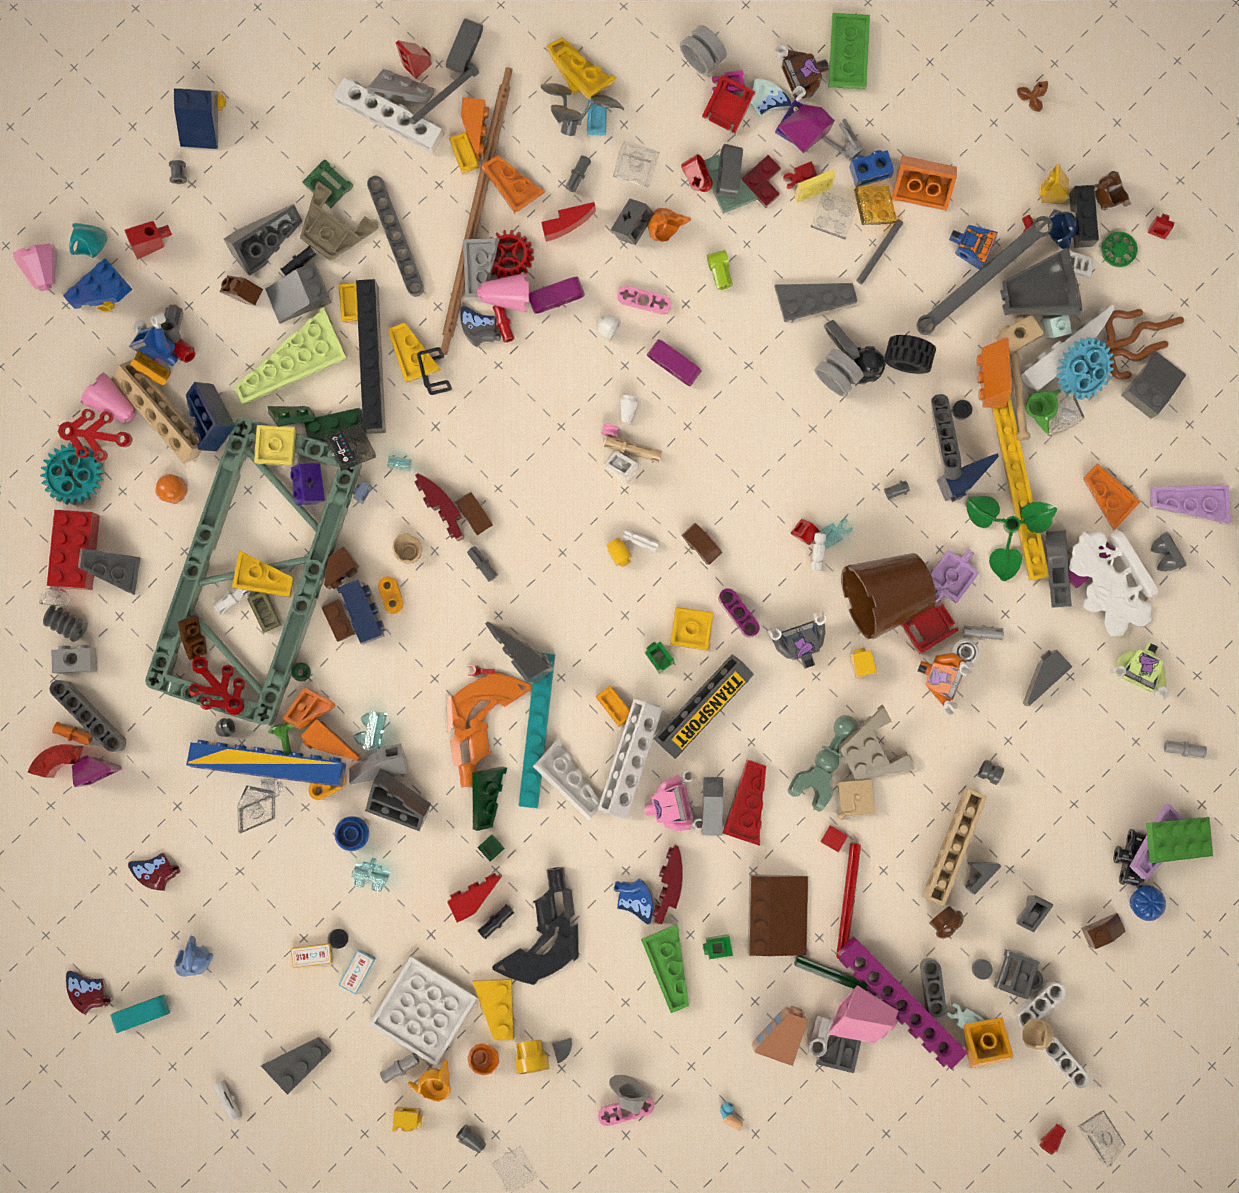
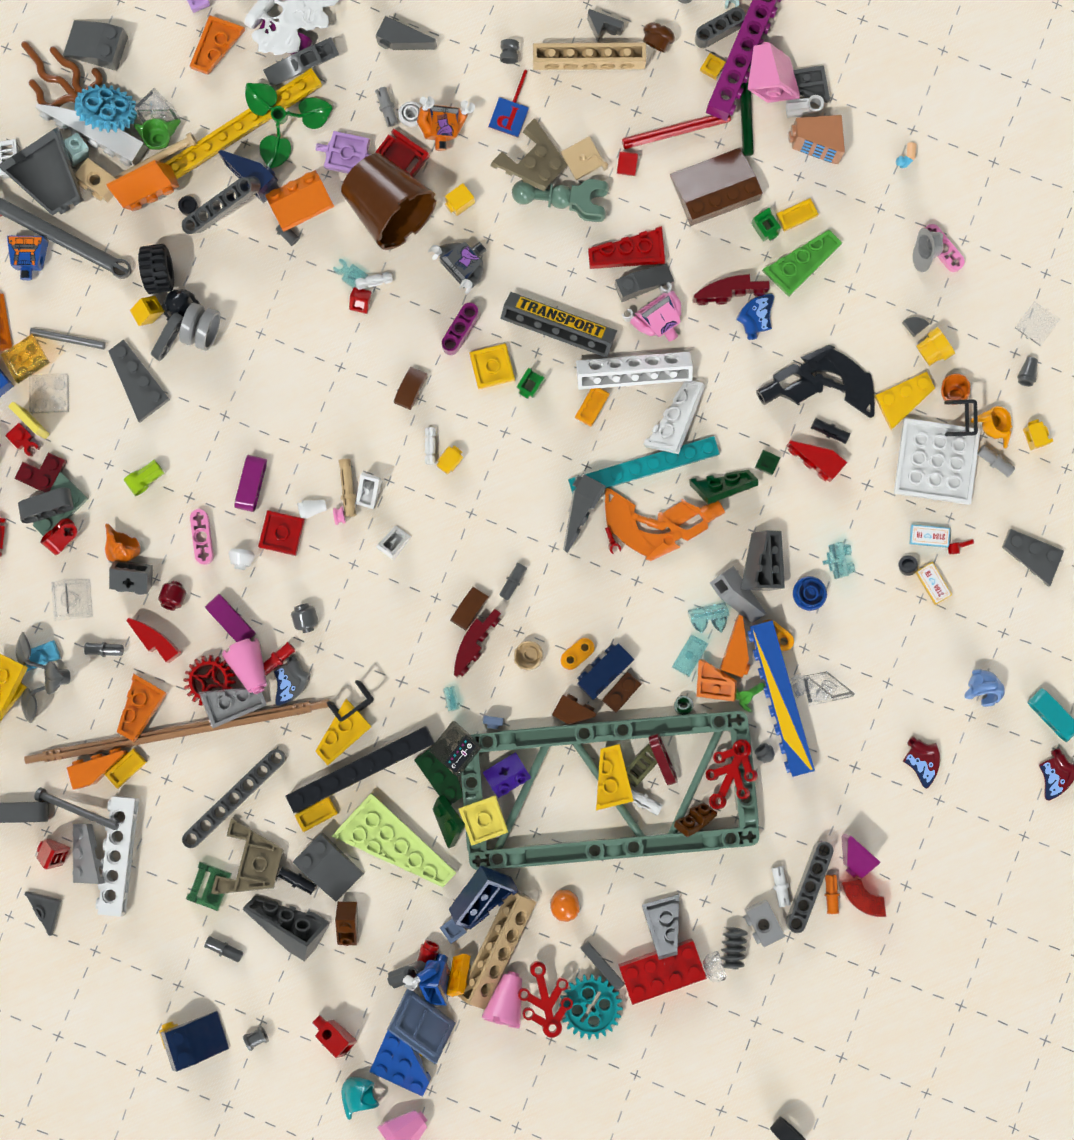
camera: 115 degrees left, 0 degrees up
(100, 690) = (781, 886): none -> white pin
(102, 499) = (602, 965): none -> dark grey beam
(119, 316) = (421, 1026): none -> sand blue piece
(191, 377) = (452, 931): none -> sand blue plate
(258, 630) = (663, 759): none -> dark red beam
(267, 175) = (223, 949): none -> dark grey axle
(335, 990) = (955, 547): none -> red hand
(343, 697) = (690, 655): none -> clear light blue slope
(371, 37) = (45, 908): none -> dark grey tile
(459, 1060) = (966, 402): none -> black piece
(529, 361) = (304, 617): none -> dark grey head
(563, 469) = (393, 542): none -> white slope
(600, 252) = (172, 595): none -> dark red head
(617, 372) = (281, 533): none -> red tile
(717, 982) = (797, 214): none -> yellow tile
(875, 331) = (146, 310): none -> yellow brick
(897, 964) = (712, 66): none -> yellow tile
(922, 512) = (299, 200): none -> orange slope
(928, 746) = (509, 115): none -> blue piece

